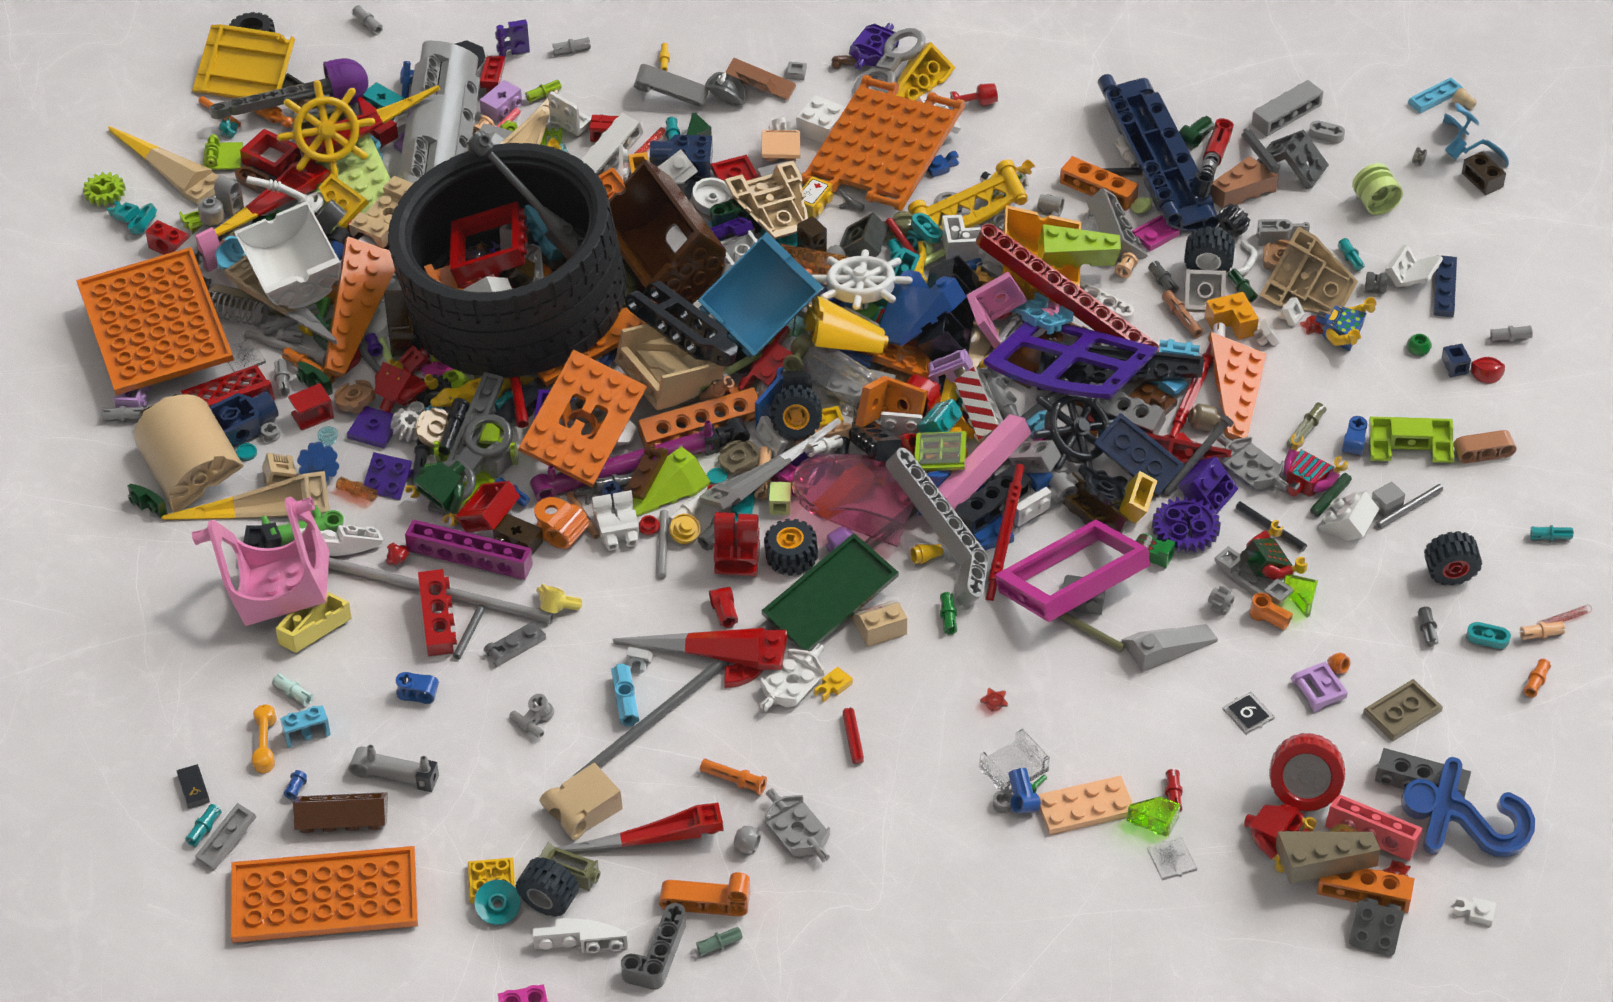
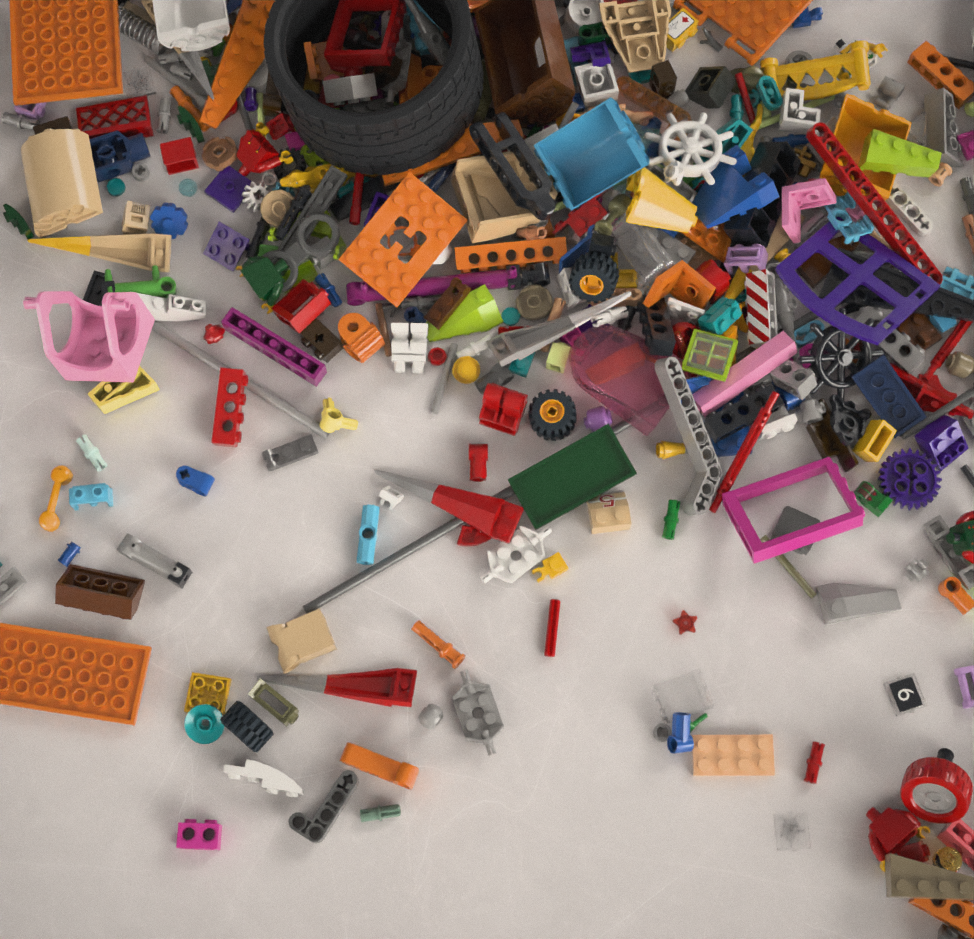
camera: 15 degrees right, 25 degrees up
(356, 489) = (197, 253): clear orange pin -> none
(468, 632) = (254, 430): dark grey piece -> none
(534, 715) = (286, 534): light grey piece -> none
(850, 297) = (669, 175): none -> white plate
(1155, 815) = (791, 786): clear neon green slope -> none

